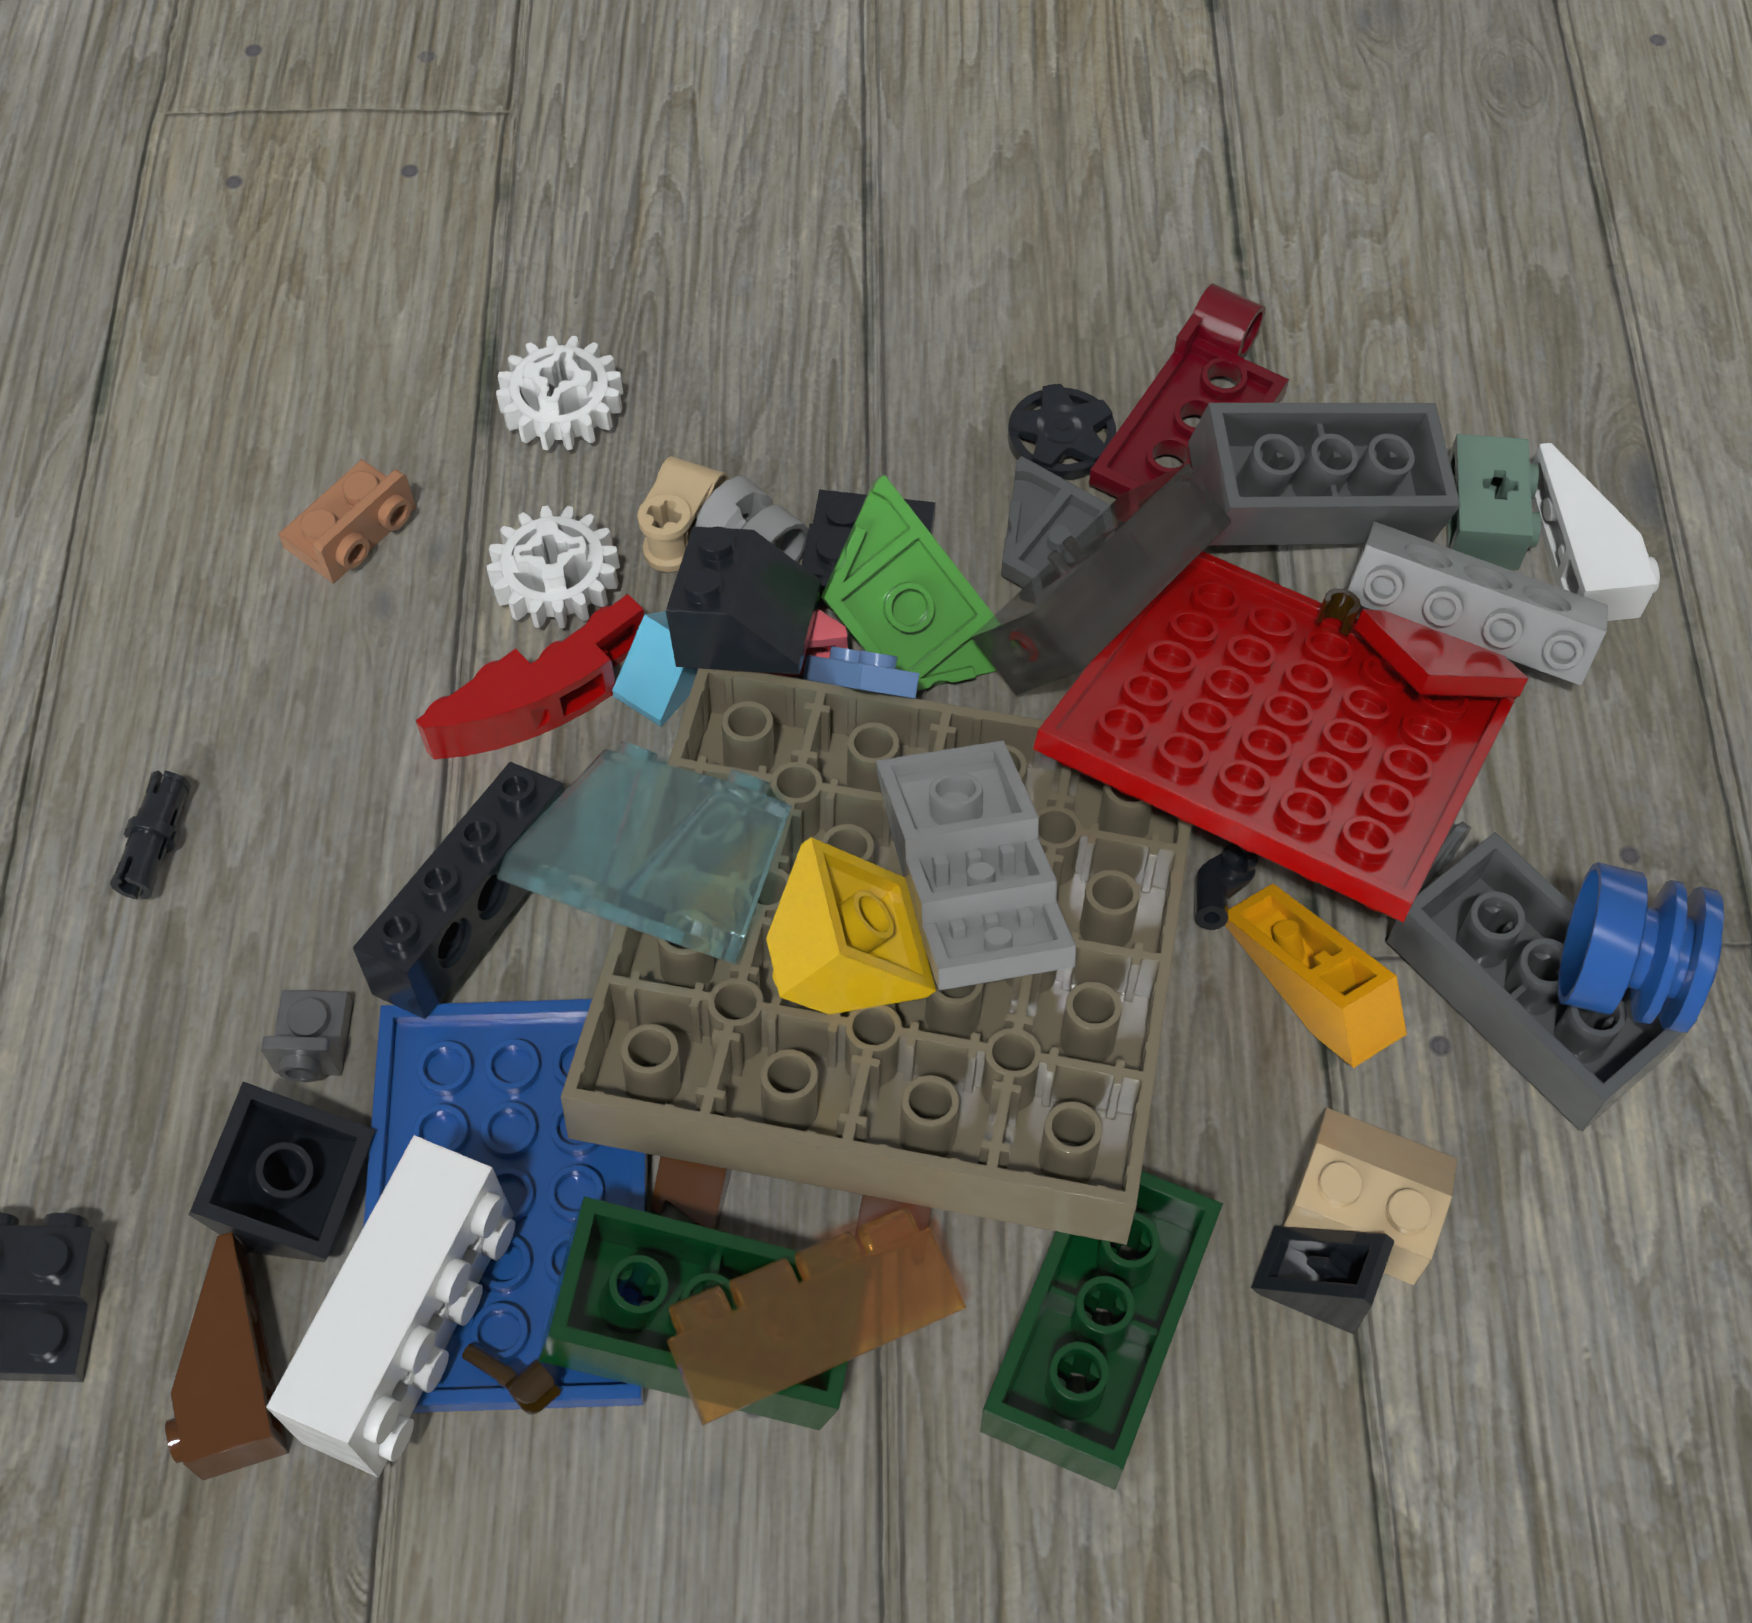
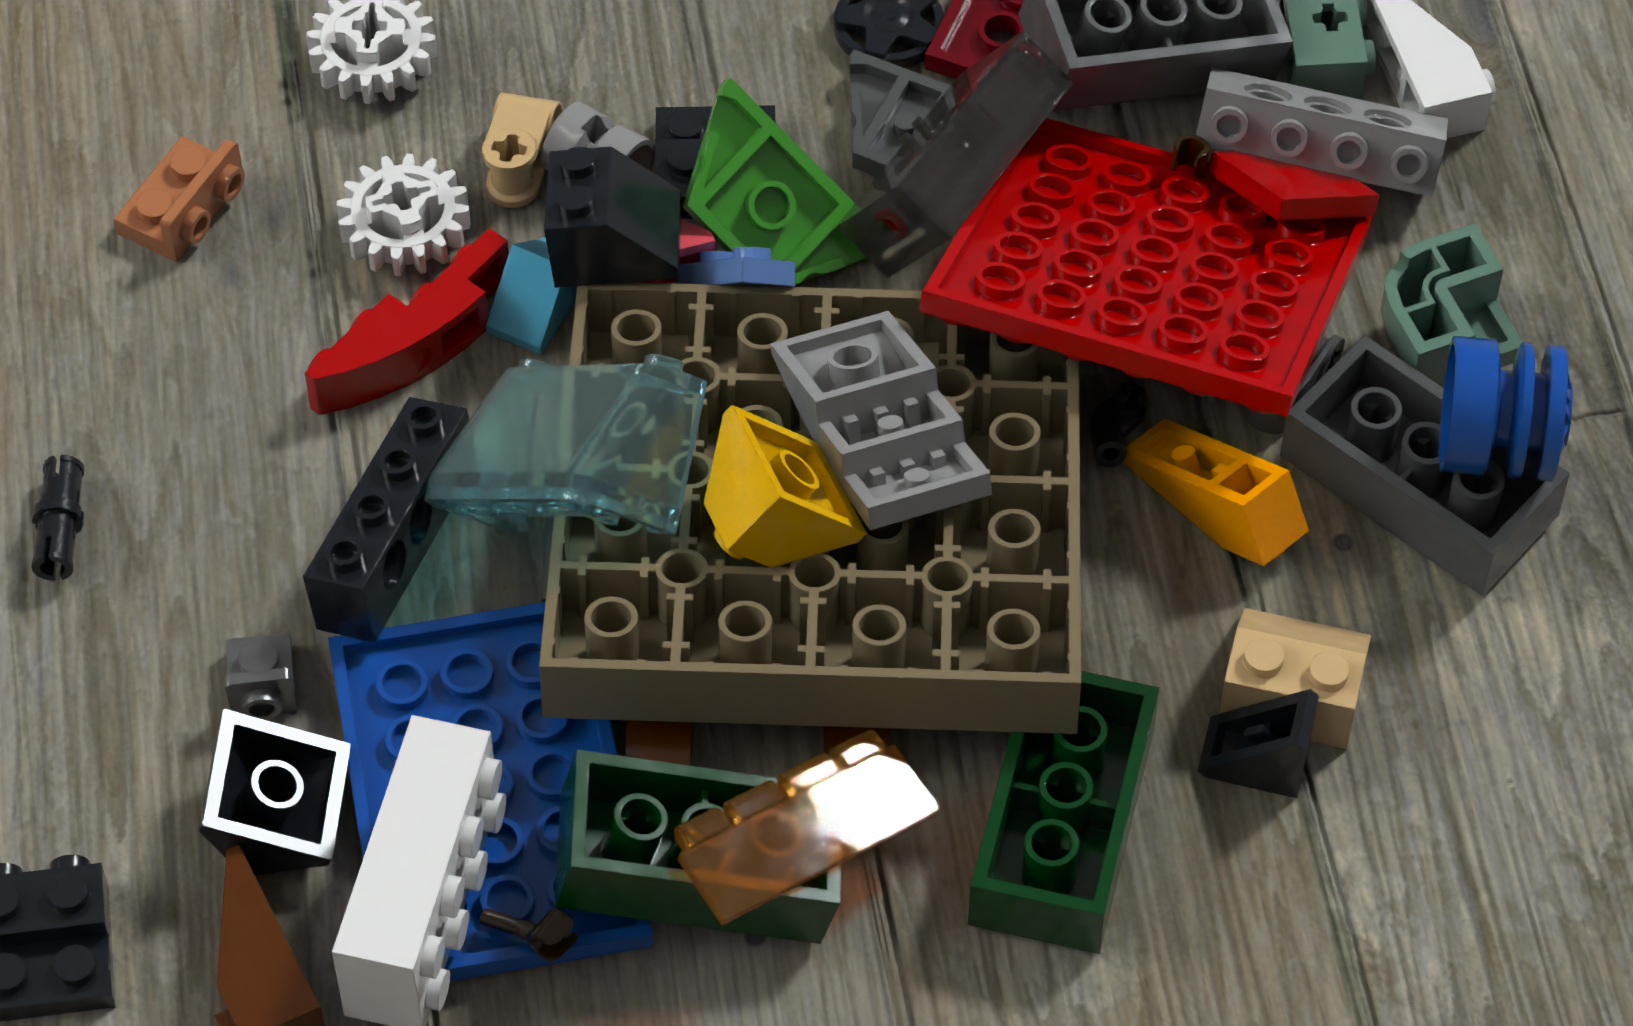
camera: 10 degrees left, 5 degrees down
(1583, 809) = (1441, 292): none -> sand green brick

